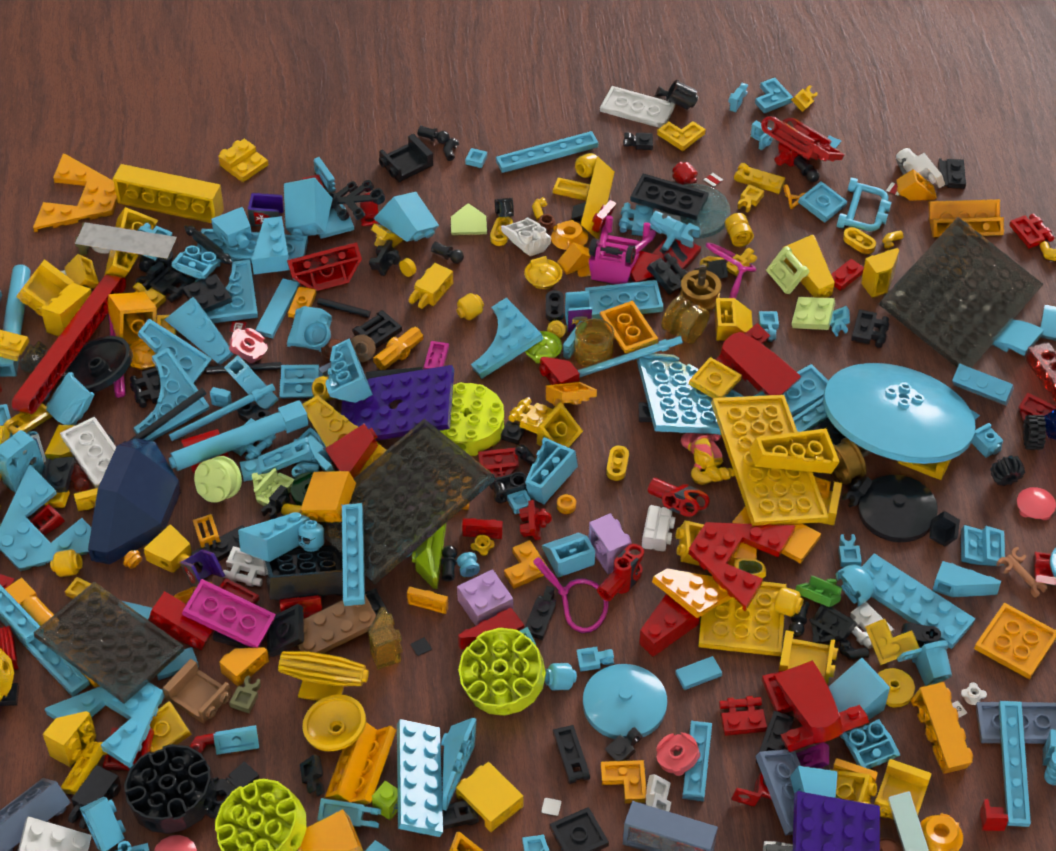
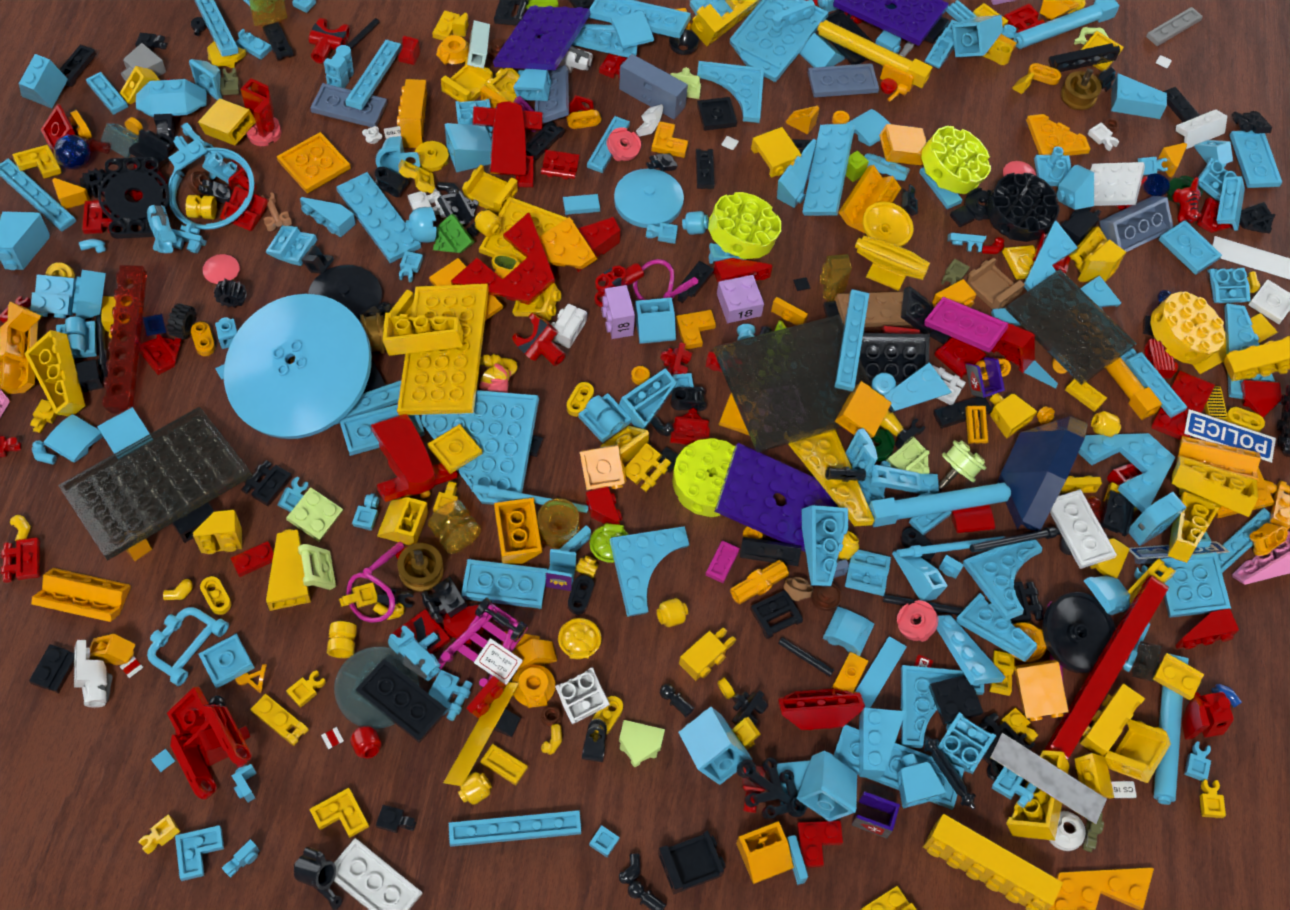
camera: 170 degrees left, 10 degrees up
(317, 334) = (843, 603): medium azure hair -> none
(335, 434) = (845, 474): none -> black pin
(353, 450) = (833, 451): red slope -> none
(357, 170) = (765, 852): none -> light orange slope
(589, 450) = (604, 417): none -> medium azure plate
(604, 236) = (498, 661): none -> white sticker
(704, 347) = (447, 497): none -> yellow plate
(739, 778) = (583, 119): none -> light orange plate
(983, 384) = (197, 383): medium azure brick -> none
(1008, 433) = (202, 337): none -> light orange plate

